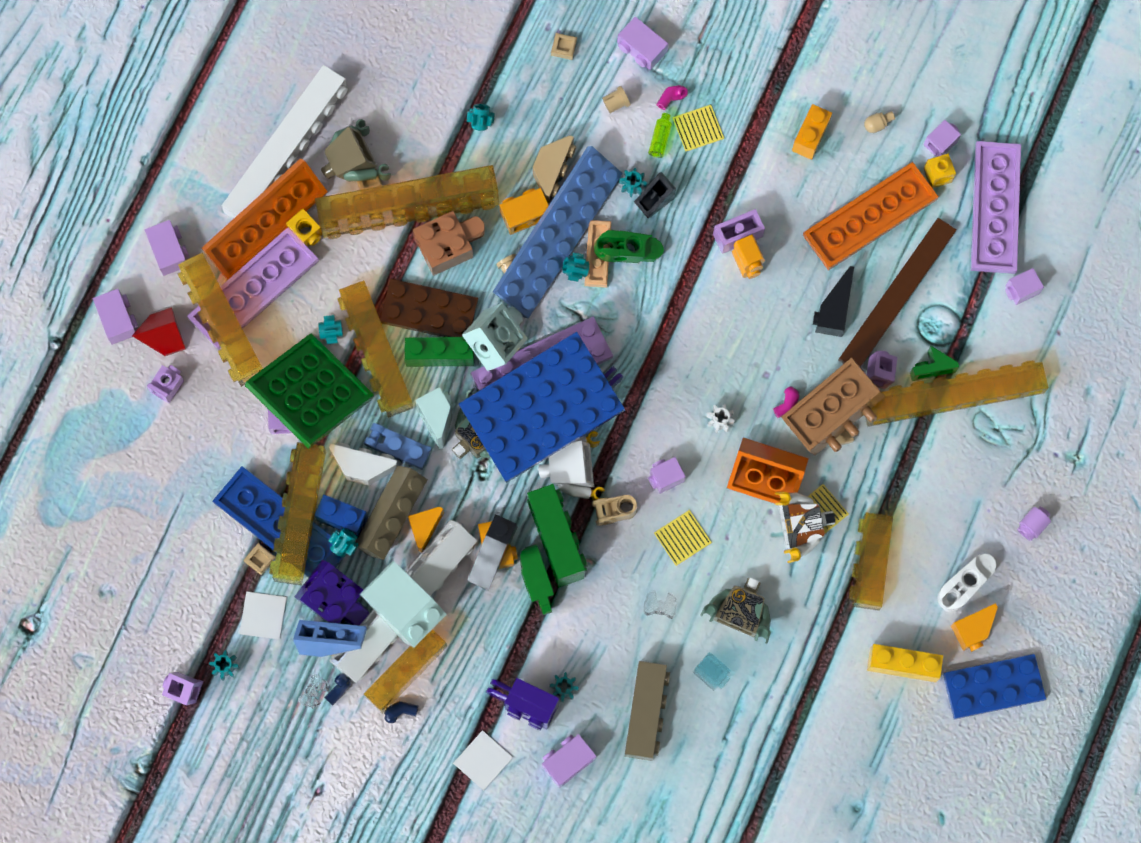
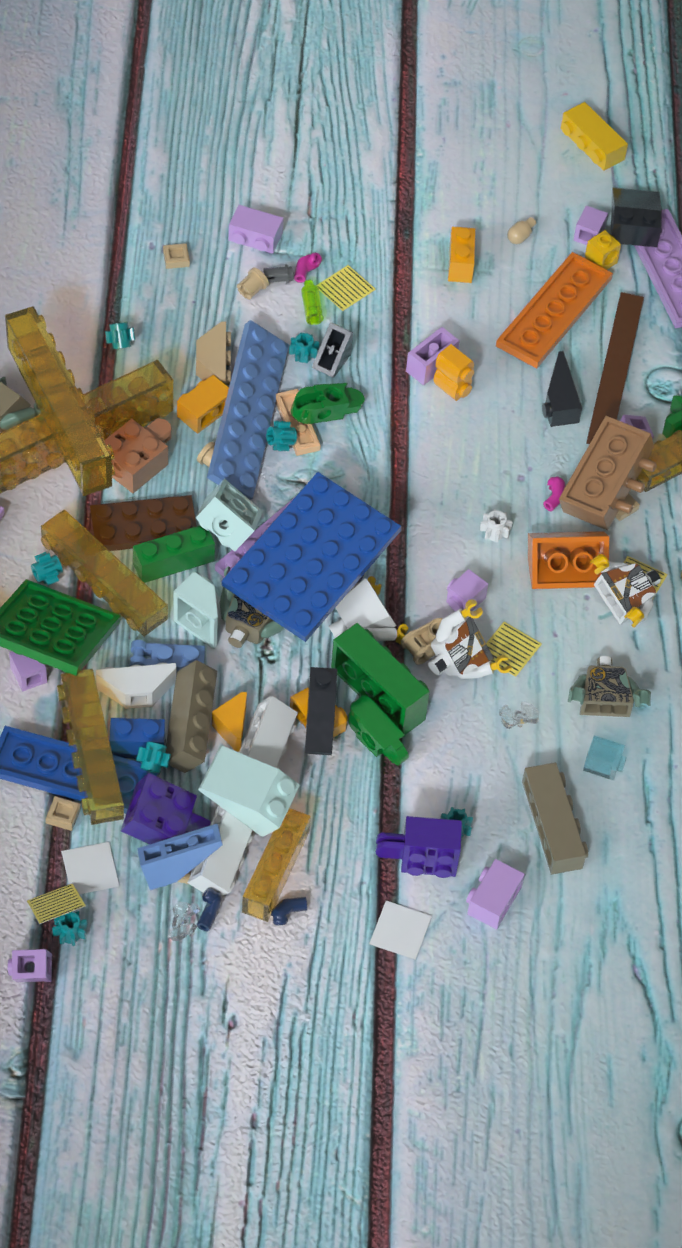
camera: 25 degrees left, 20 degrees down
(221, 641) = (56, 903): none -> light yellow sticker
(388, 186) = (60, 400): none -> clear yellow brick
(637, 533) = (461, 647): none -> torso
(644, 97) = (279, 274): none -> dark grey pin
(985, 144) = (636, 217): none -> black slope
(989, 41) = (594, 136): none -> yellow brick

